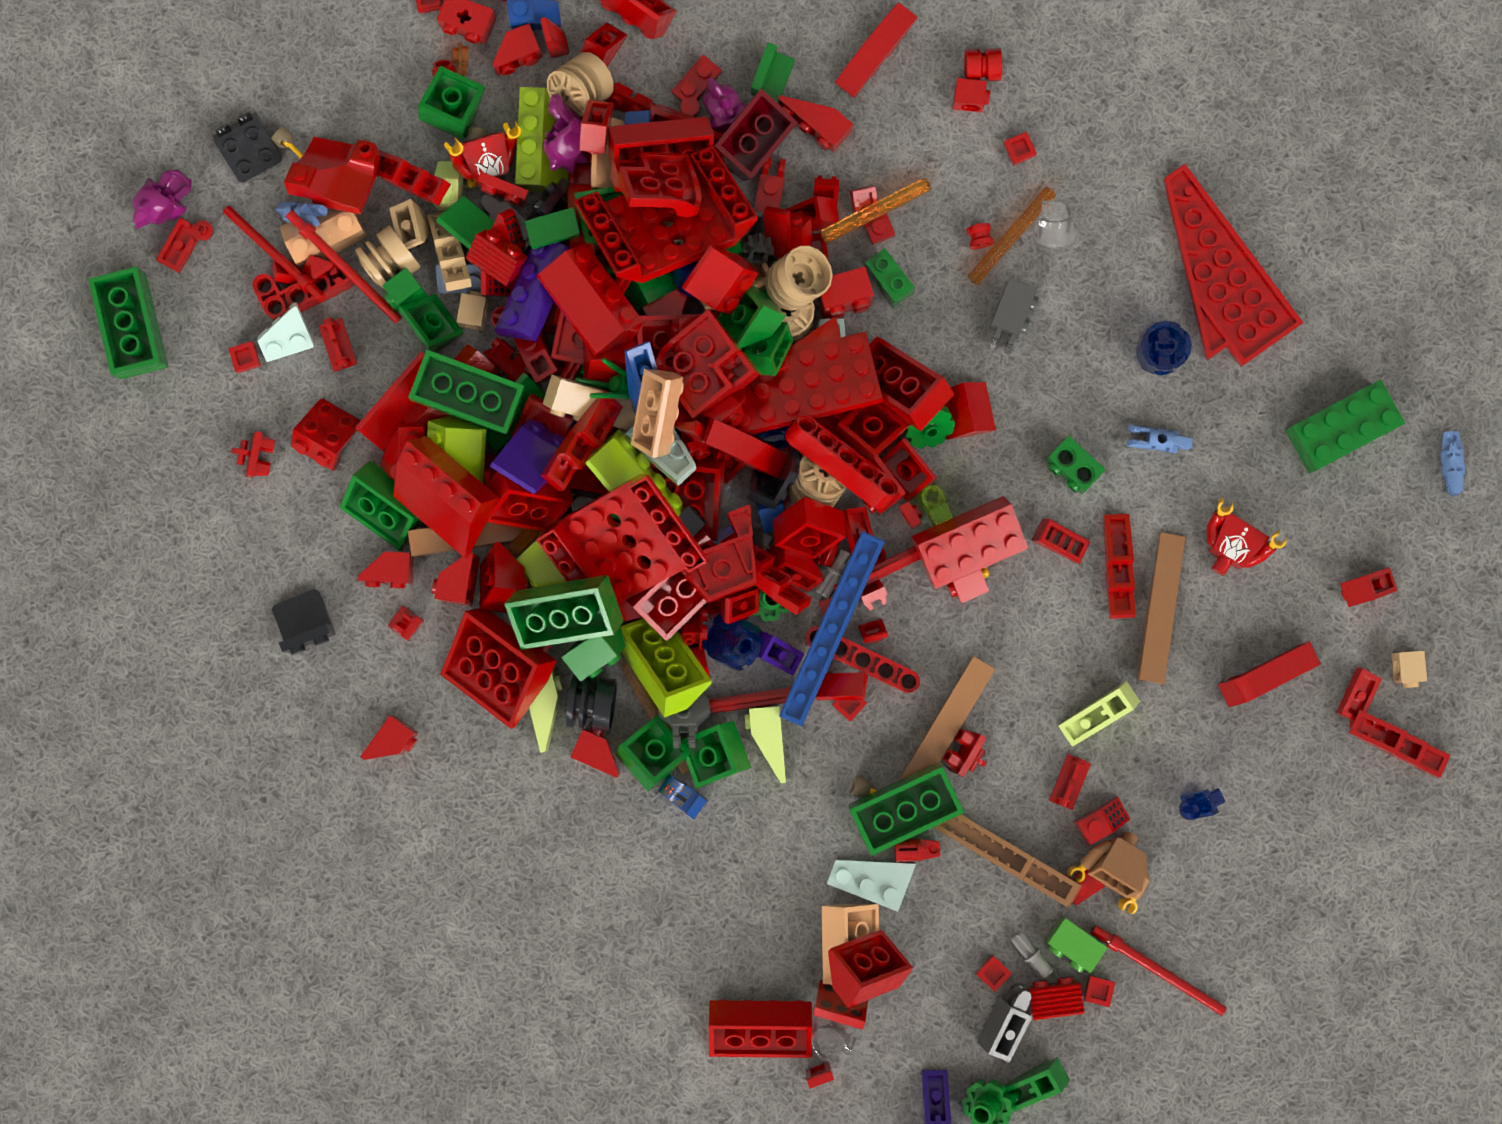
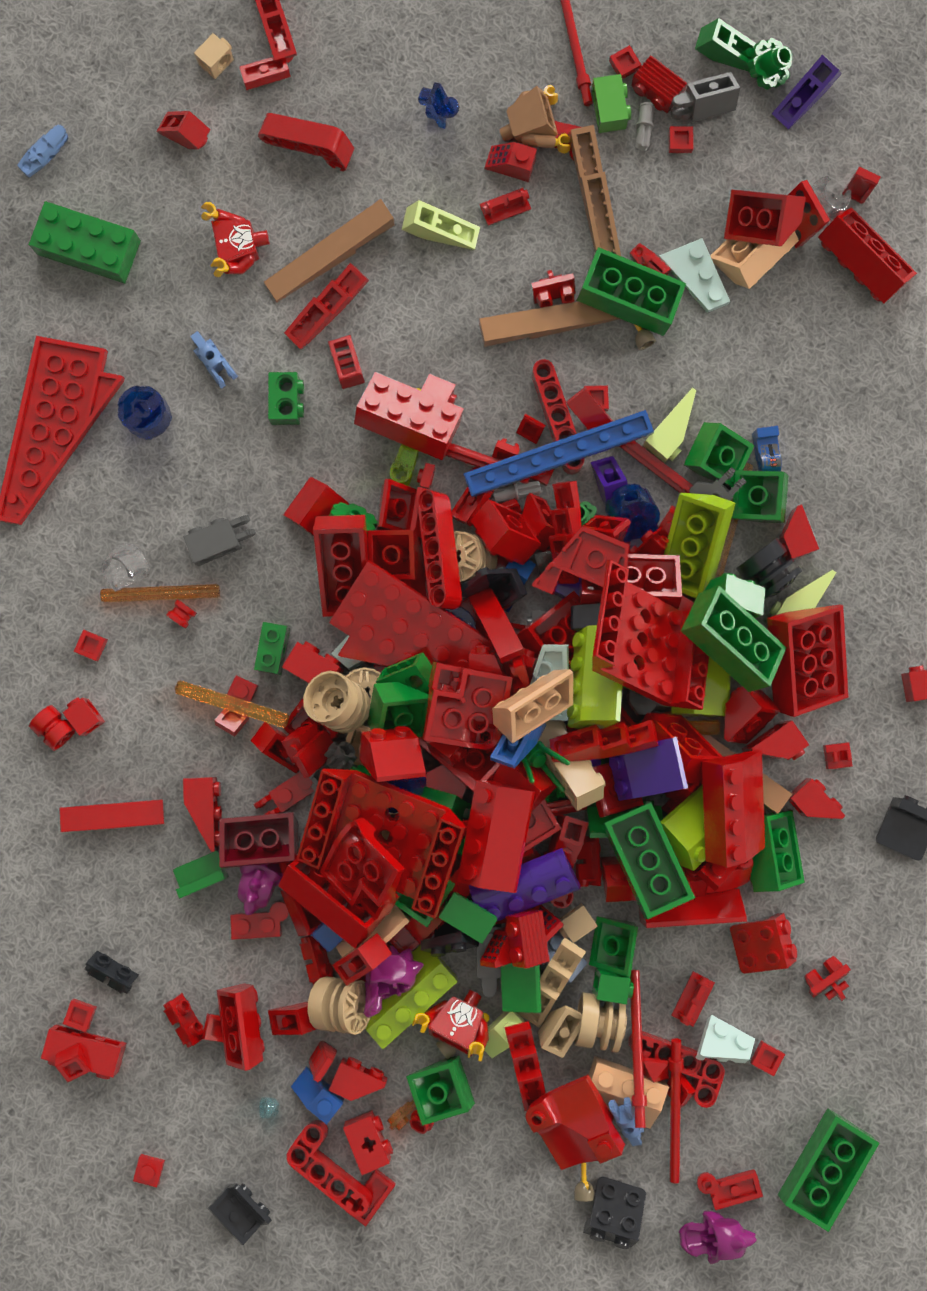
camera: 140 degrees left, 0 degrees up
(506, 190) = (467, 977): red wing -> none
(826, 187) = (248, 754): red tile -> none

